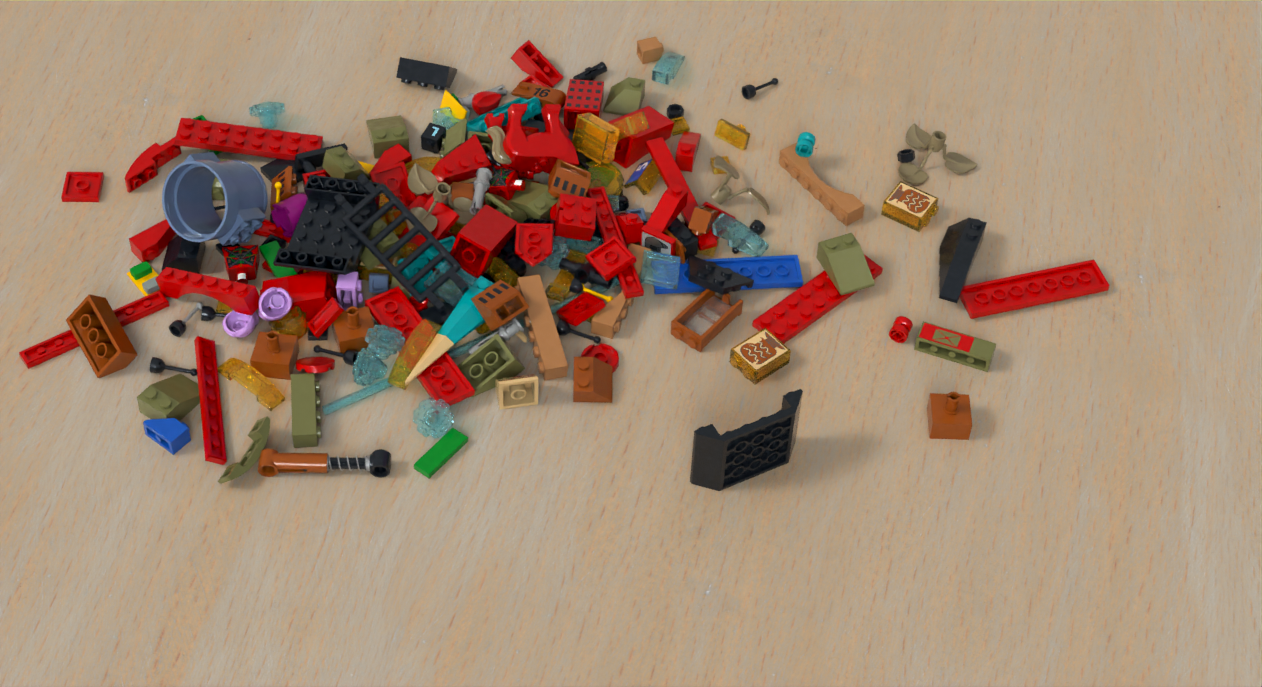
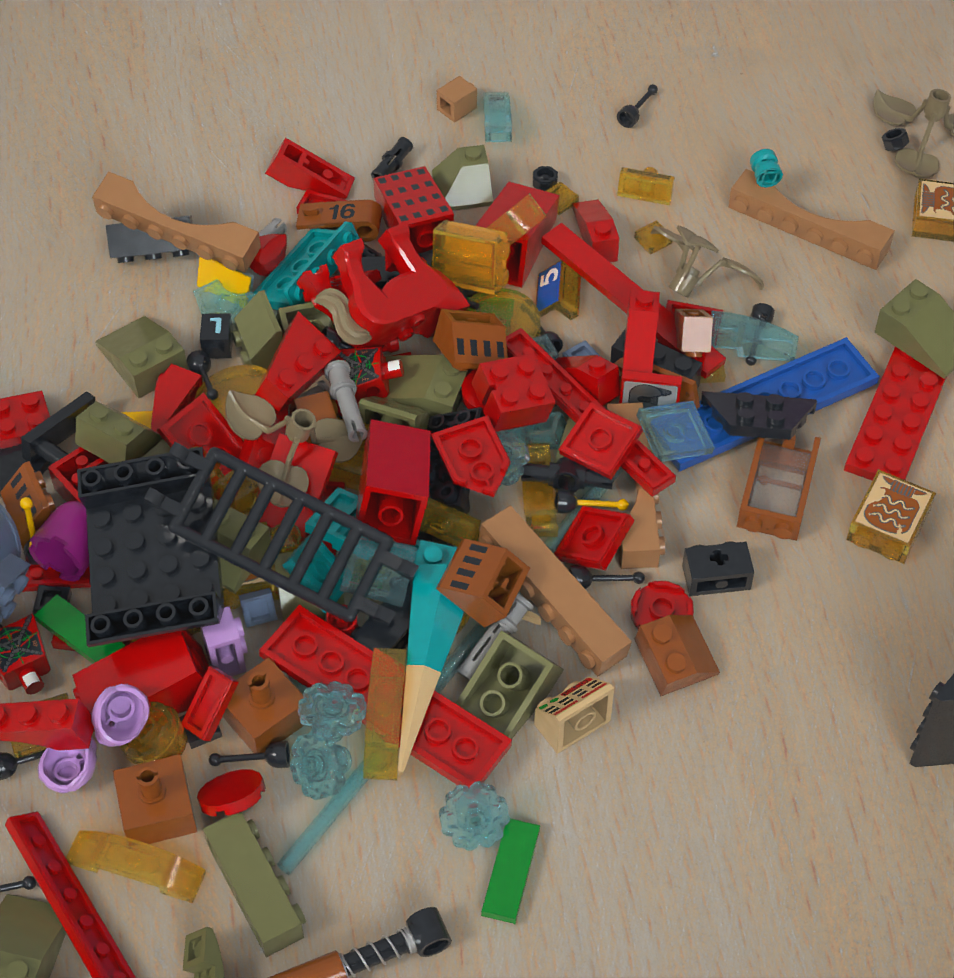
camera: 20 degrees left, 5 degrees up
(413, 149) = (196, 364): none -> black hinge
(461, 87) = (225, 243): none -> medium nougat arch
(642, 348) = (718, 568): none -> black brick

